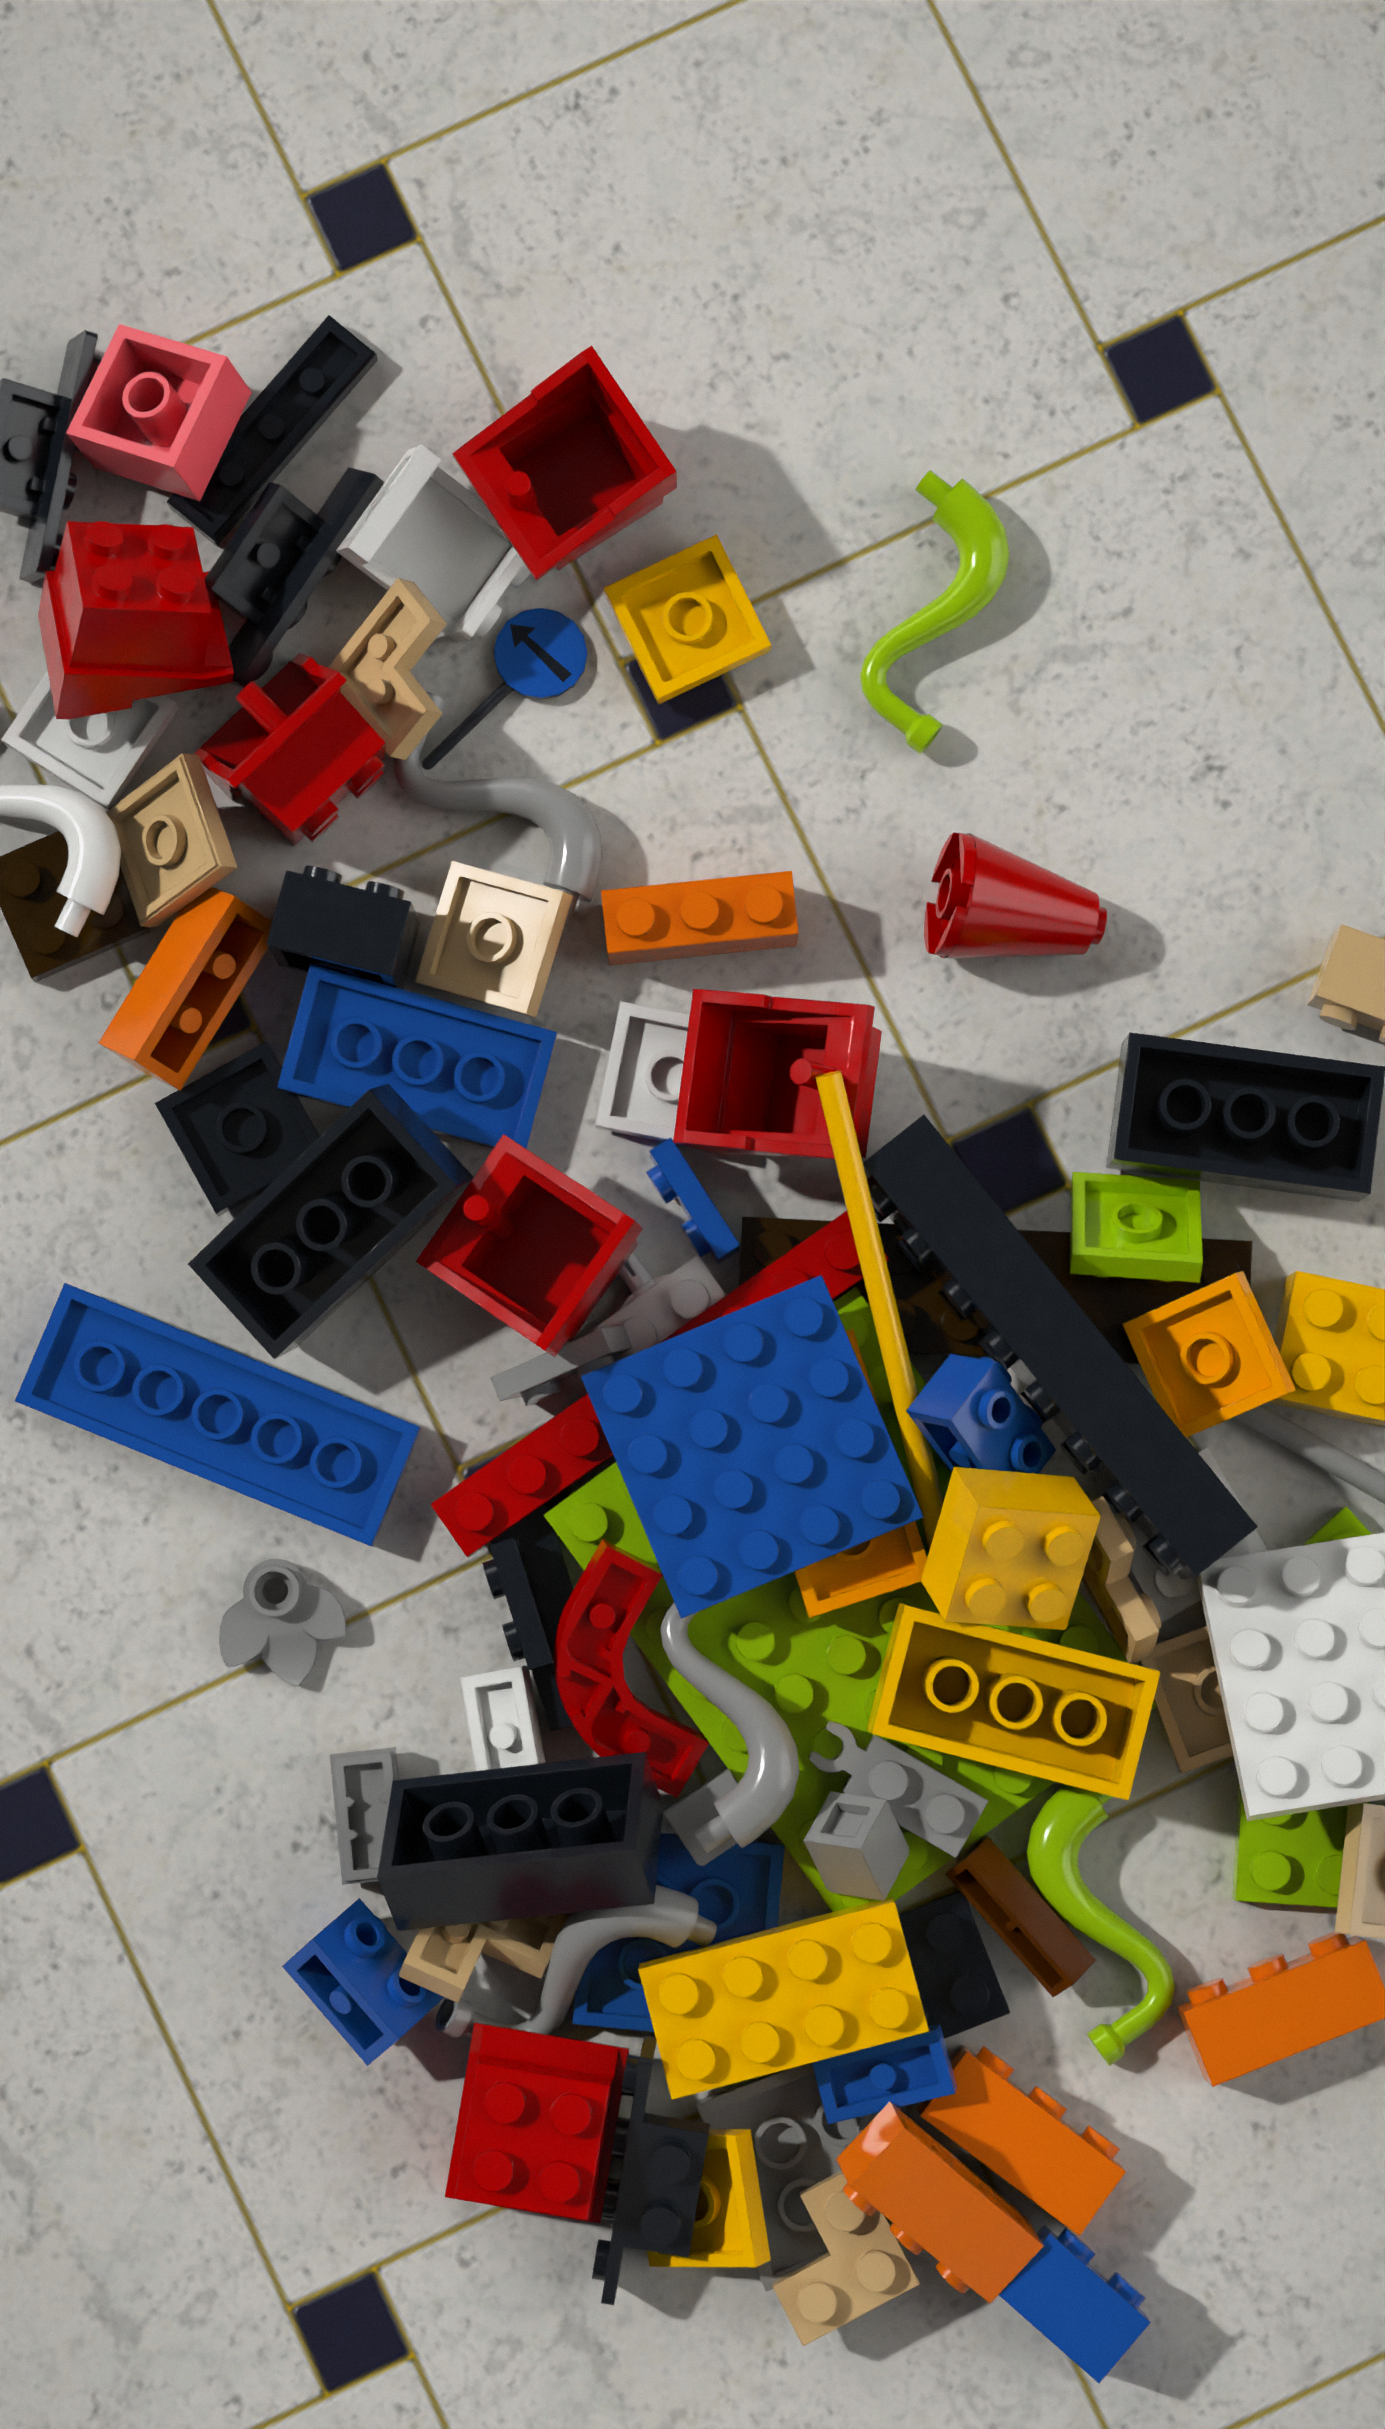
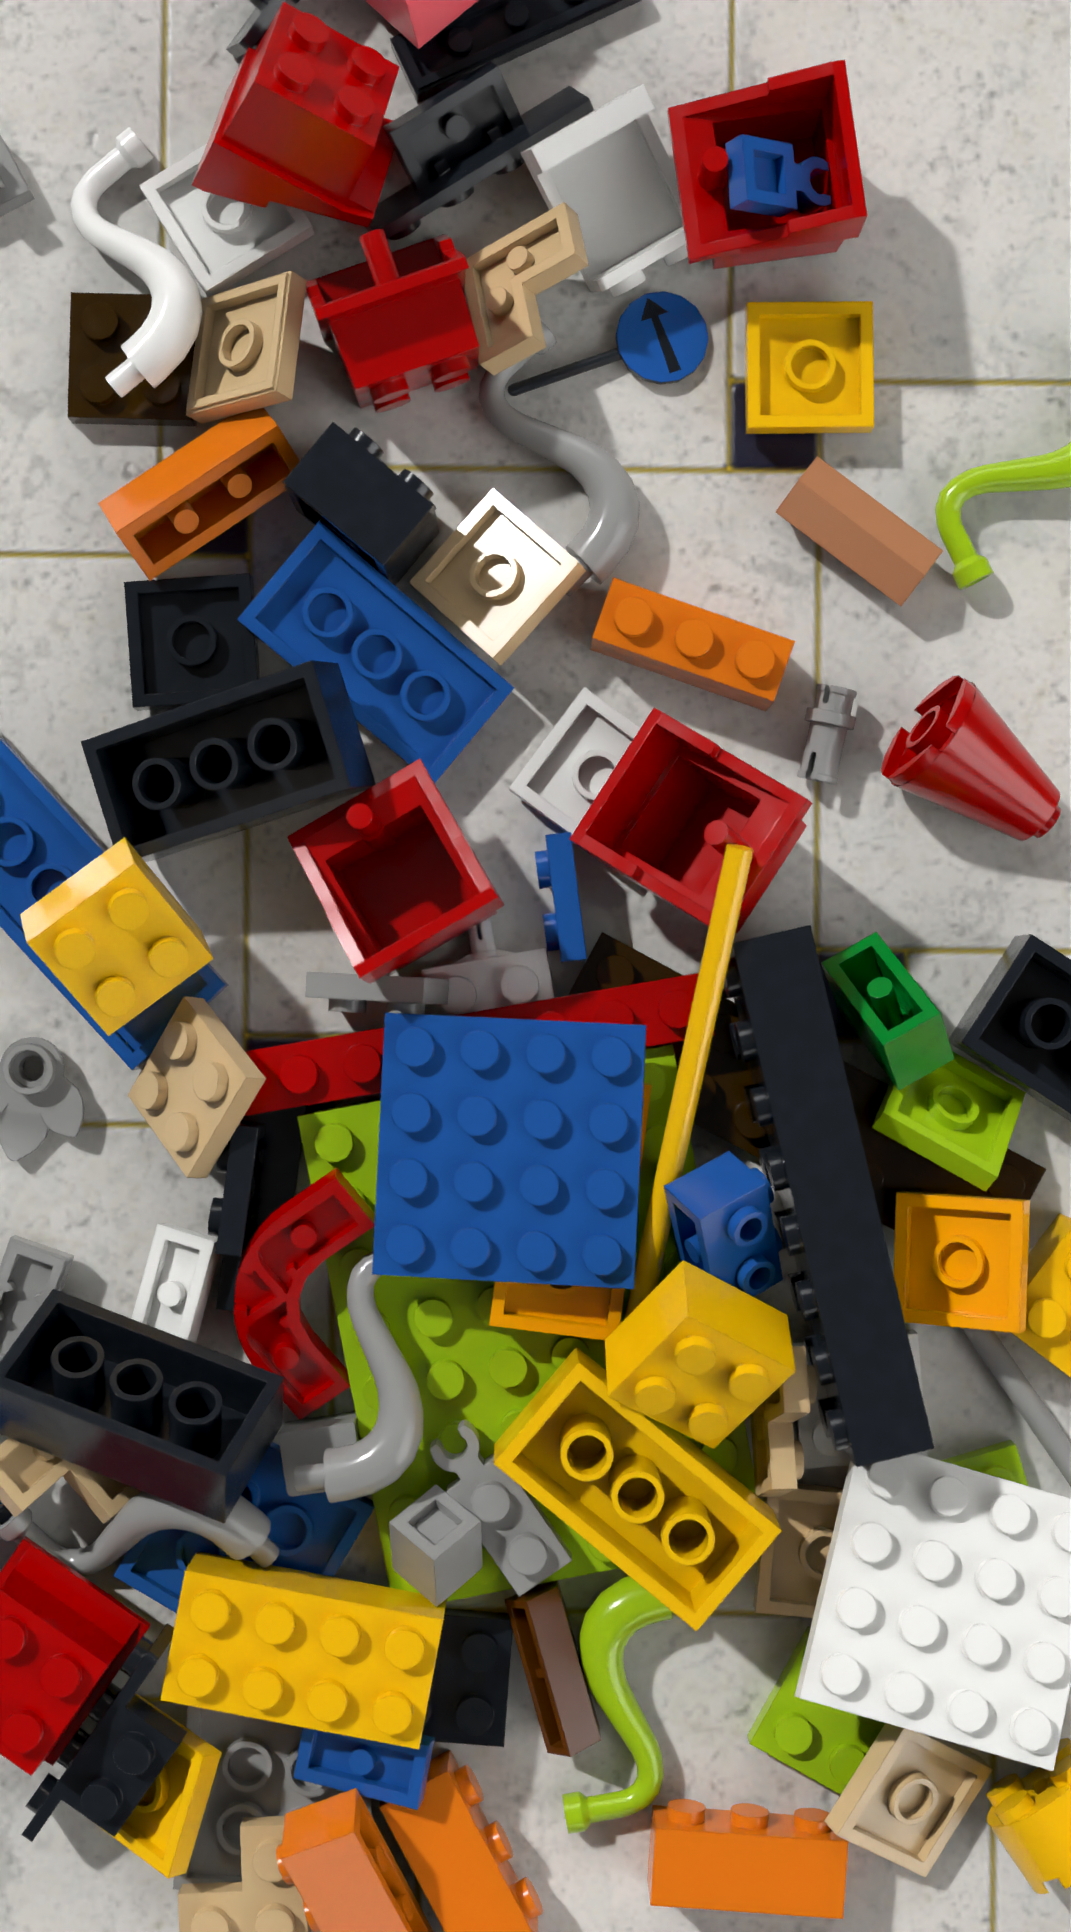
camera: 25 degrees right, 5 degrees up
(304, 1423) = (115, 937): none -> yellow brick
(438, 1530) = (196, 1087): none -> tan plate
(572, 477) = (768, 180): none -> blue plate
(802, 744) = (859, 531): none -> nougat piece
(861, 939) = (827, 733): none -> light grey pin
(1034, 1162) = (888, 1010): none -> green brick

